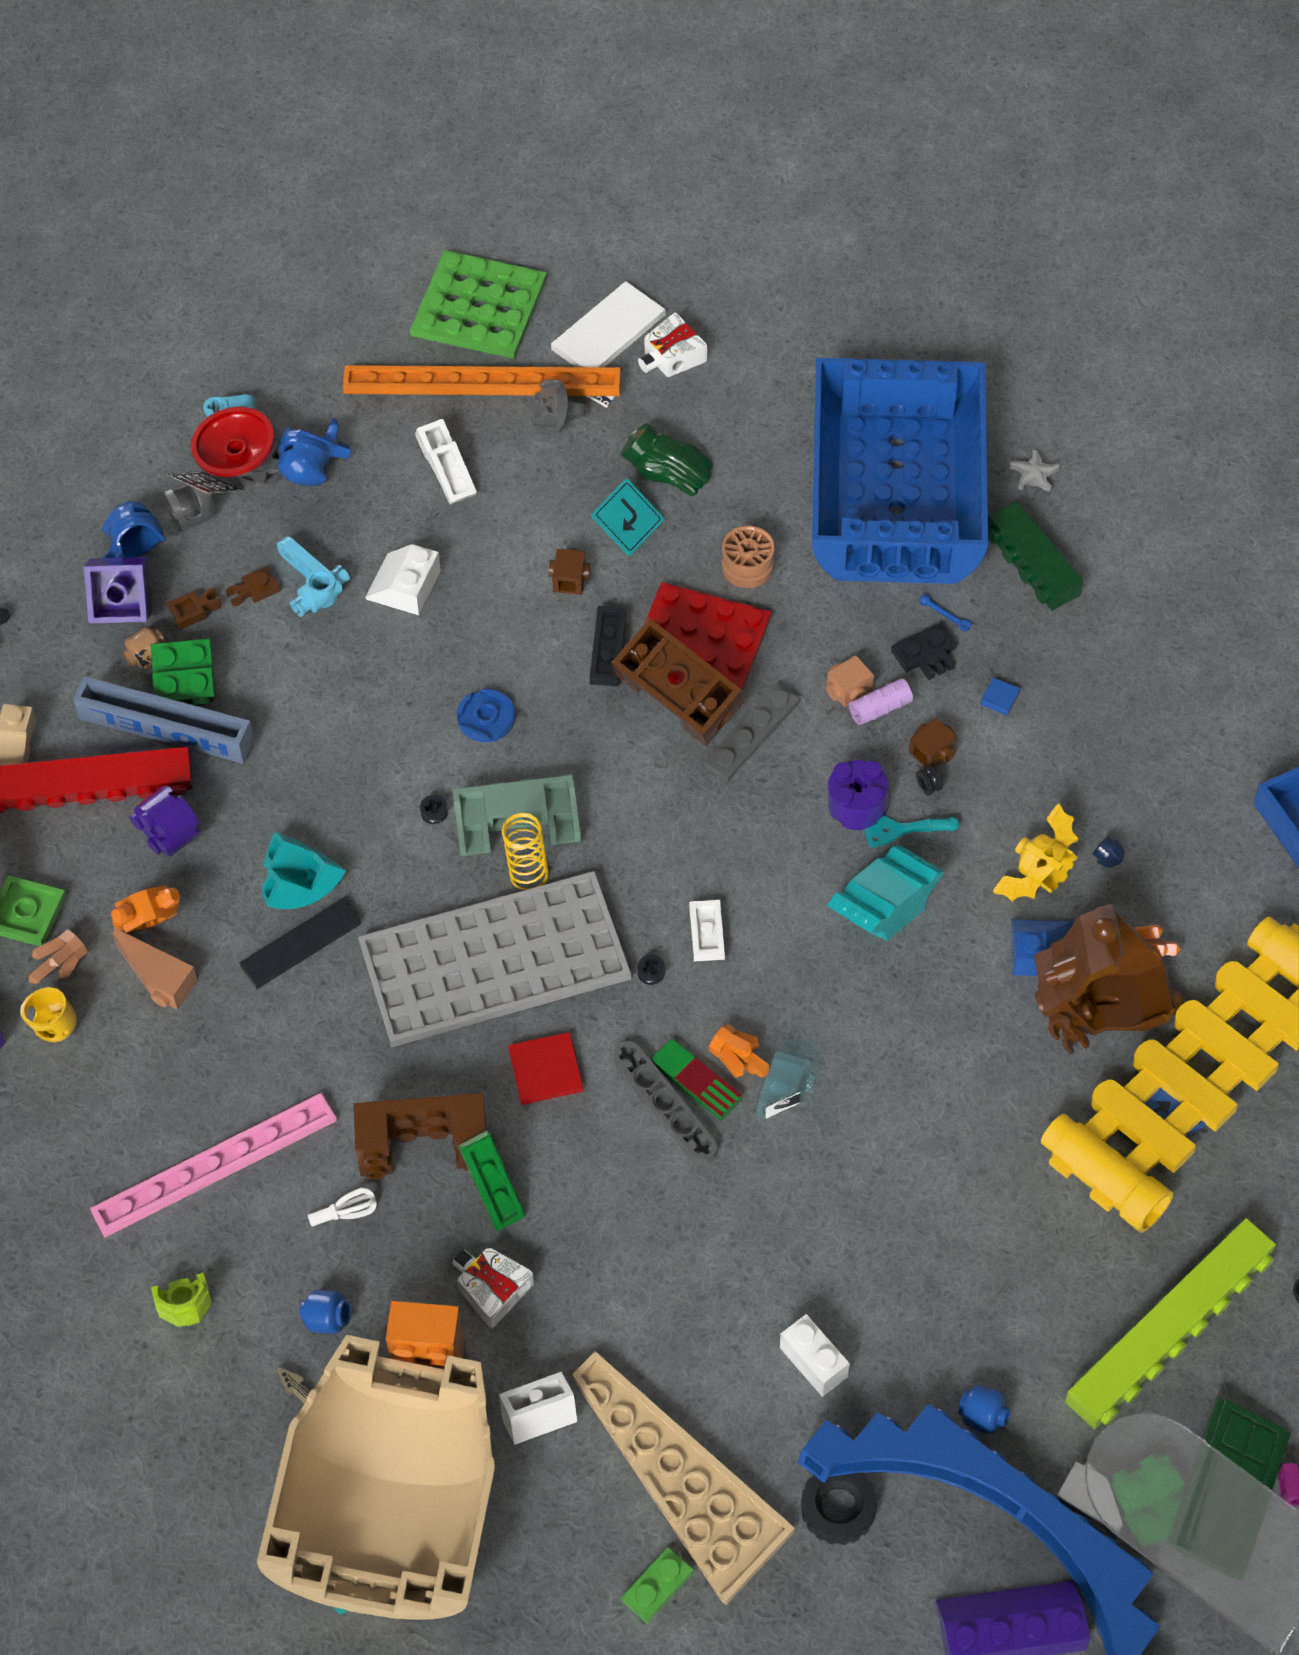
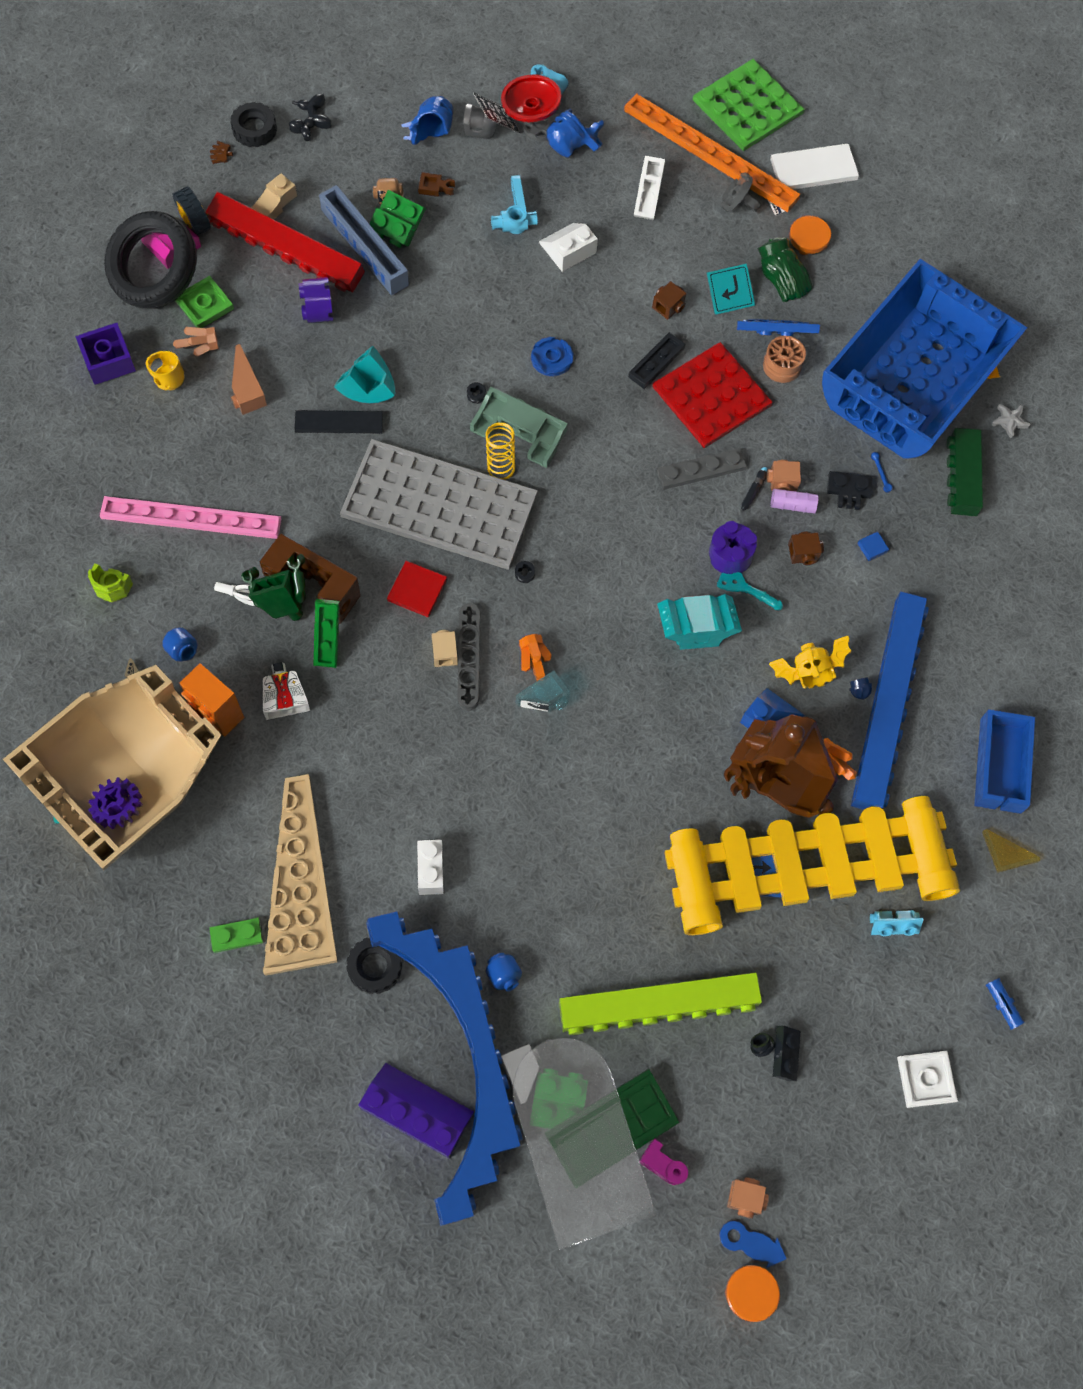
camera: 30 degrees right, 10 degrees up
(117, 590) = (396, 146): dark purple brick -> none
(145, 909) = (264, 343): orange piece -> none
(256, 585) = (483, 195): reddish brown plate -> none
(400, 1174) = (278, 593): none -> dark green torso
(414, 1542) = (113, 804): none -> dark purple gear
(538, 1408) = (248, 784): white brick -> none
(632, 1111) = (444, 648): none -> tan brick
(664, 405) = (810, 235): none -> orange tile
(673, 347) = (843, 201): white torso -> none
(696, 1079) = (498, 655): tile -> none
(701, 701) = (680, 427): reddish brown plate -> none
(706, 930) = (575, 570): white plate -> none
(723, 520) = (782, 327): none -> blue wing
(826, 716) = (760, 477): none -> black piece
(929, 780) = (784, 569): black bush -> none
(1150, 847) = (889, 702): none -> blue brick

